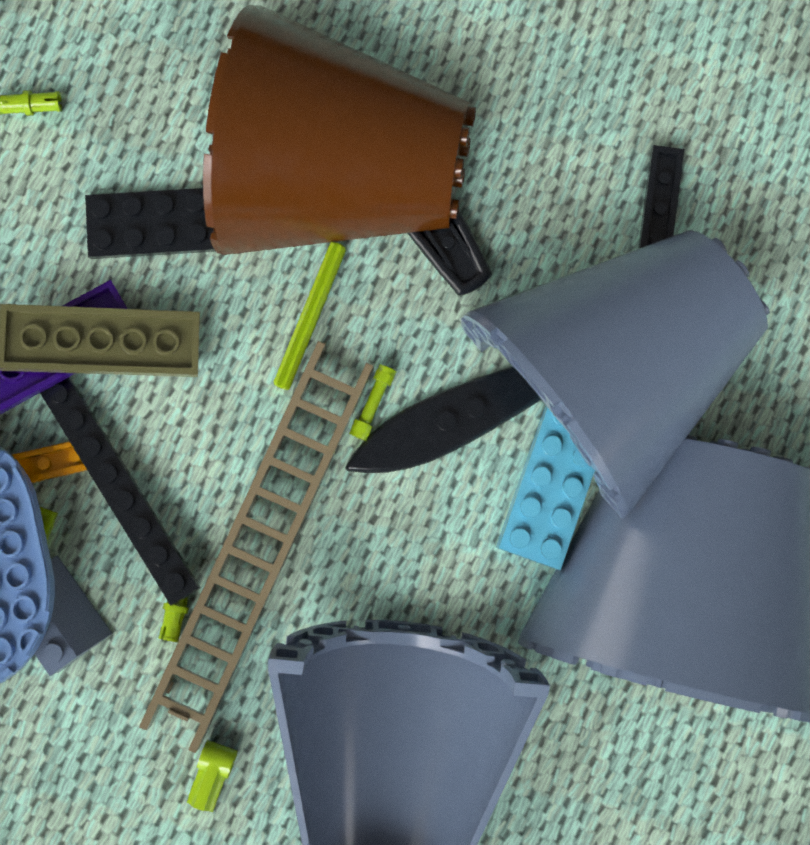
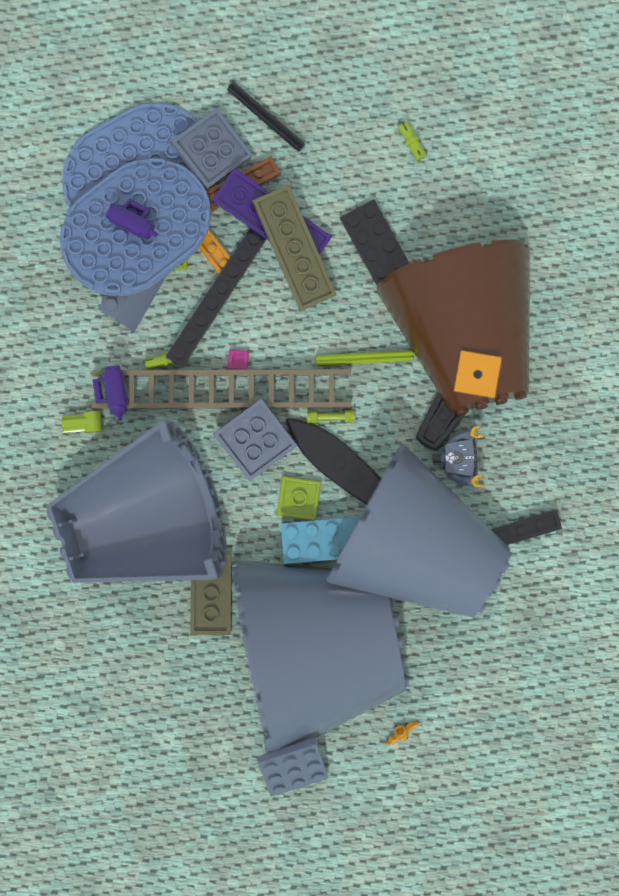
camera: 75 degrees right, 0 degrees up
(184, 707) = (115, 390): none -> dark purple piece
(226, 499) = (238, 360): none -> dark pink tile
(356, 528) = (255, 439): none -> sand blue plate
(416, 151) = (477, 374): none -> light orange tile
(470, 504) = (298, 498): none -> lime tile
(519, 243) = (461, 458): none -> sand blue torso
(576, 705) = (212, 604): none -> olive plate

